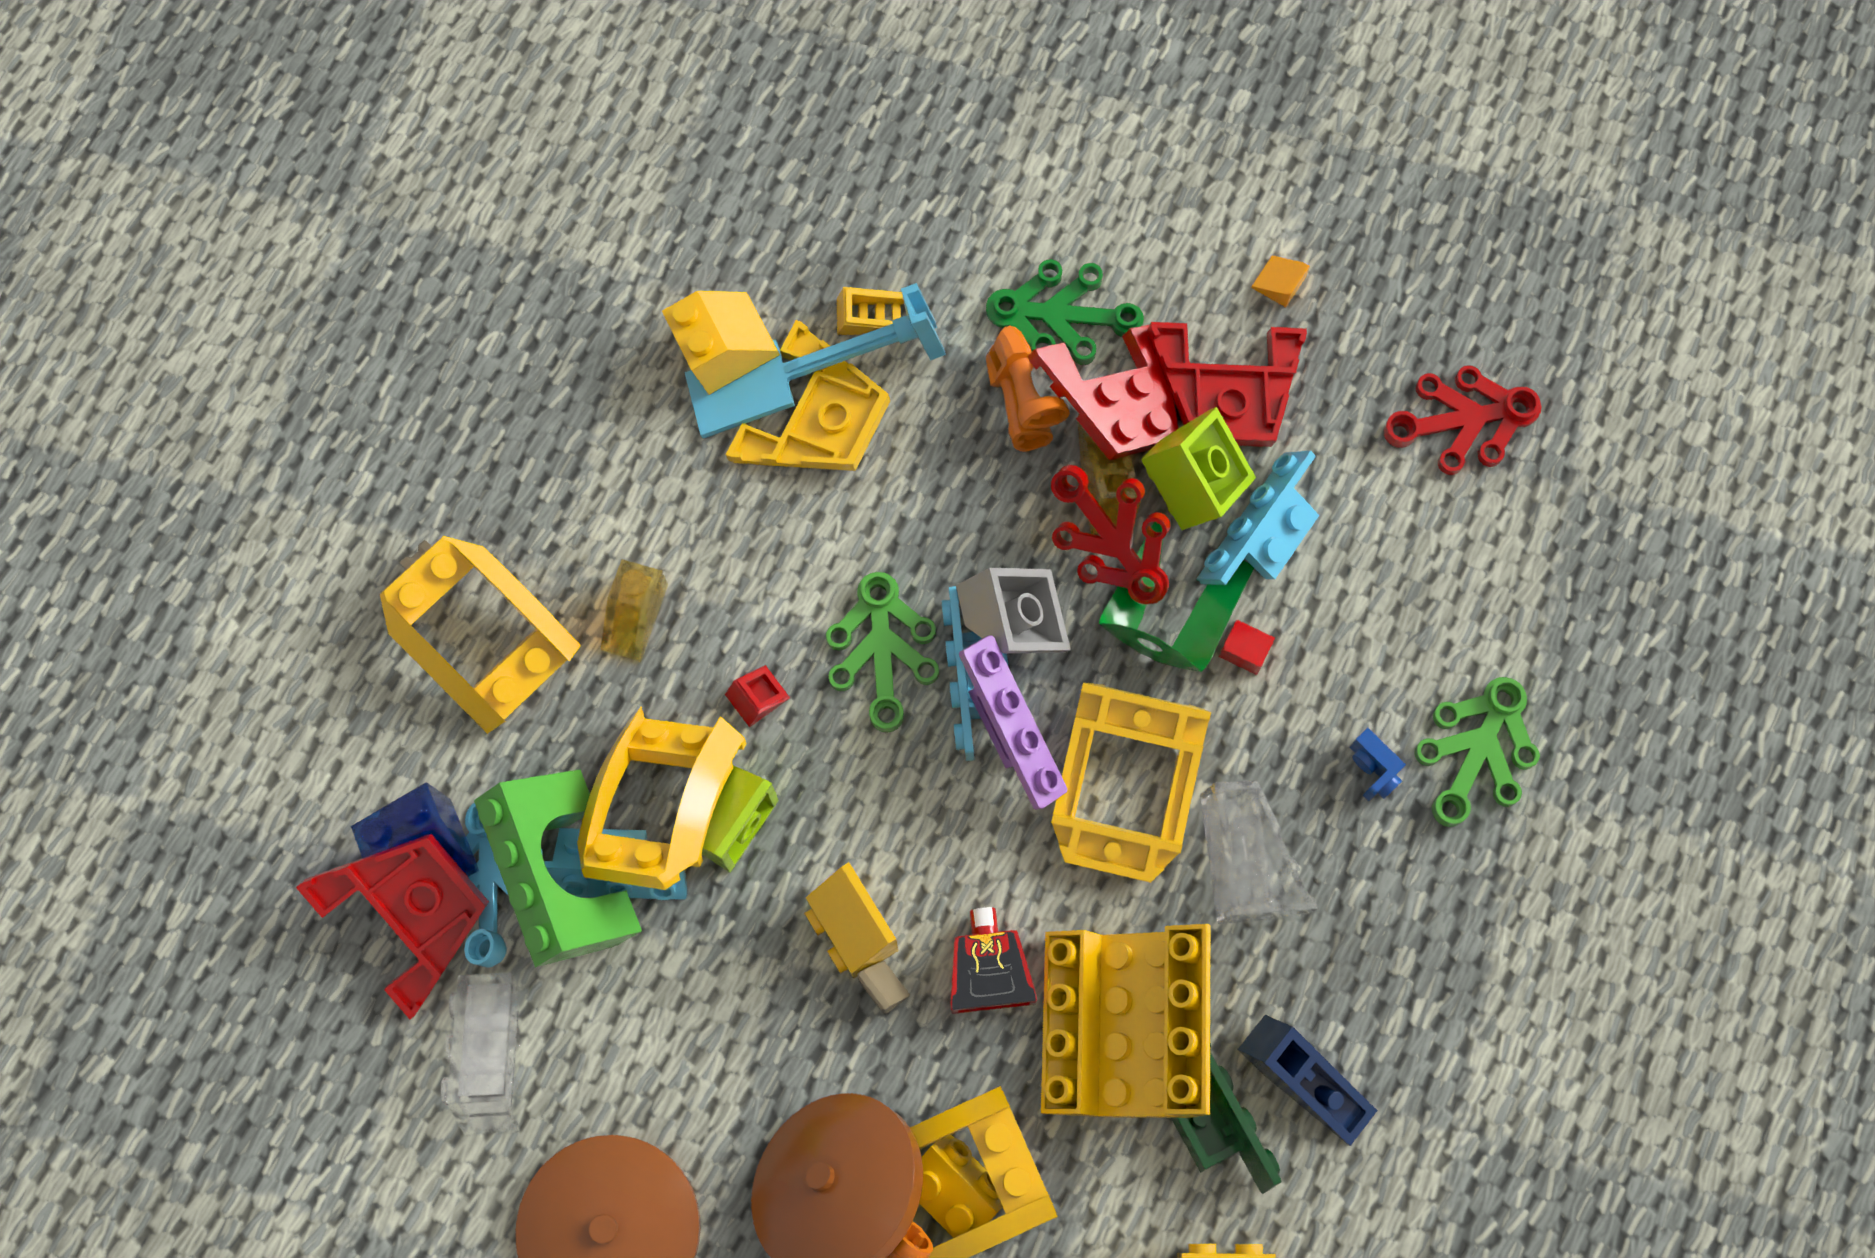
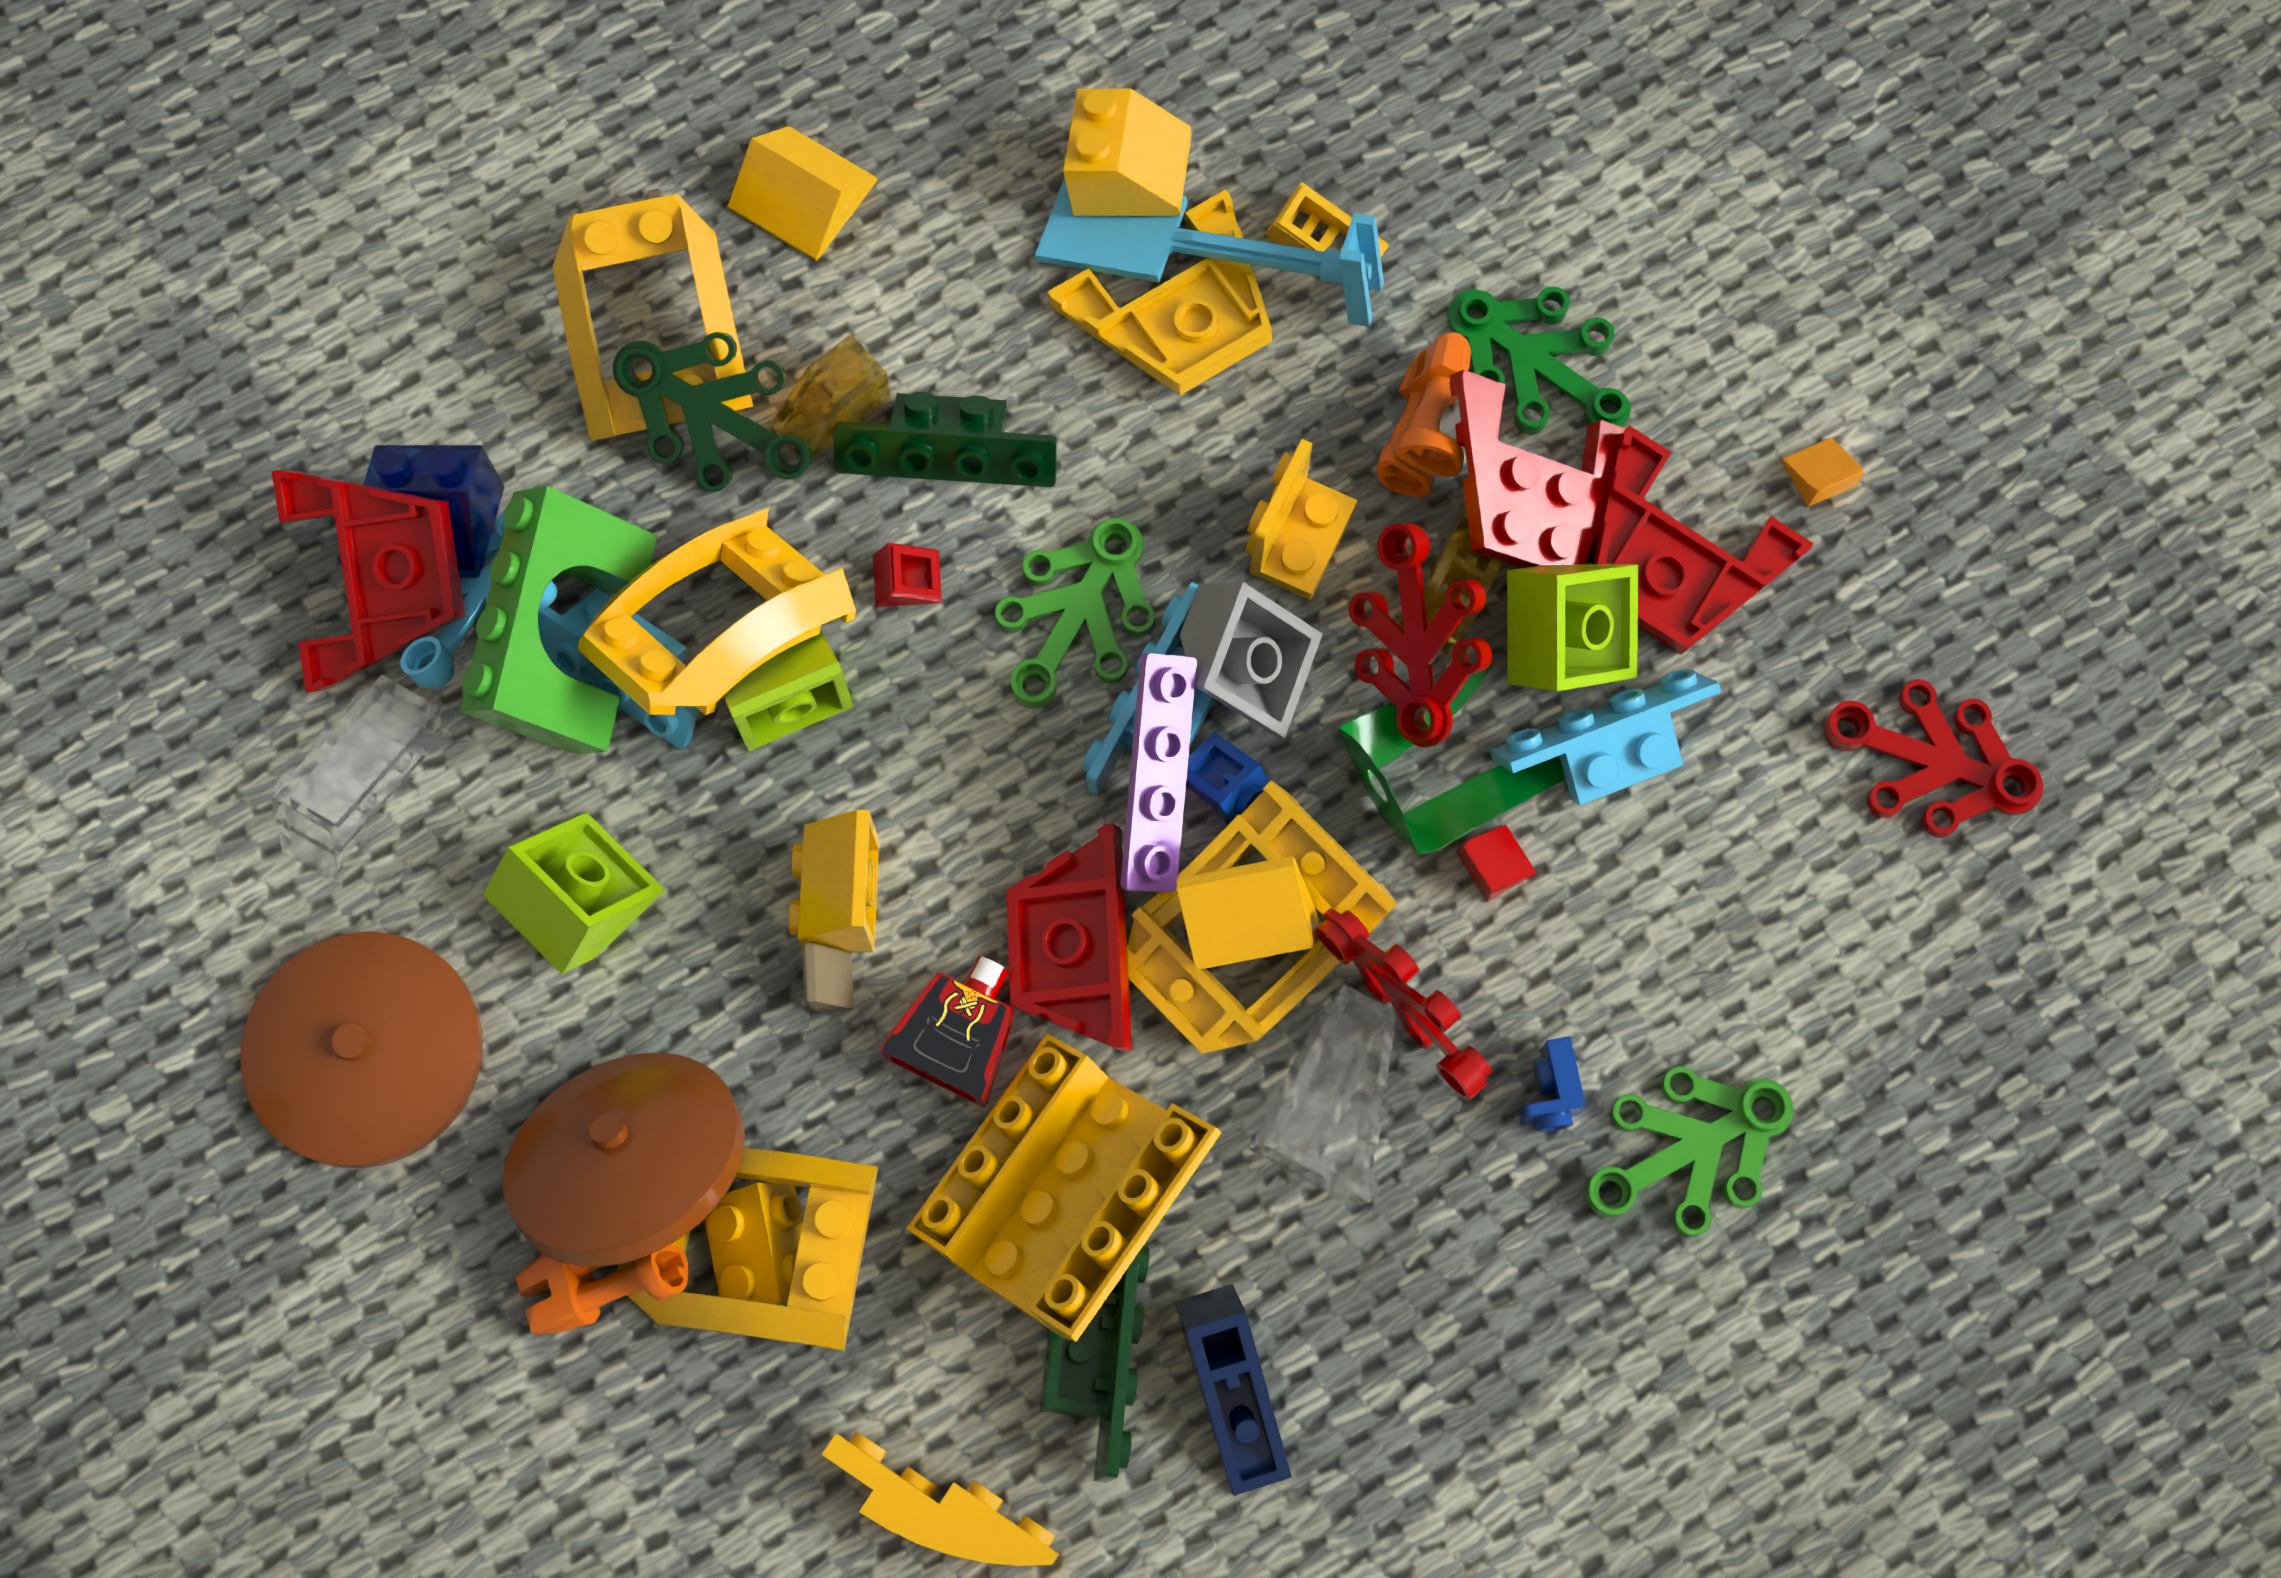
camera: 30 degrees right, 0 degrees up
(515, 485) = (798, 190): none -> yellow slope
(554, 664) = (704, 406): none -> dark green plant
(679, 1037) = (571, 891): none -> lime slope
(725, 591) = (947, 442): none -> dark green bracket
(988, 511) = (1298, 527): none -> yellow bracket
(1024, 864) = (1073, 942): none -> red wing
(1051, 697) = (1224, 777): none -> blue bracket
(1127, 777) = (1247, 912): none -> yellow slope
(1244, 759) = (1422, 1017): none -> red plant

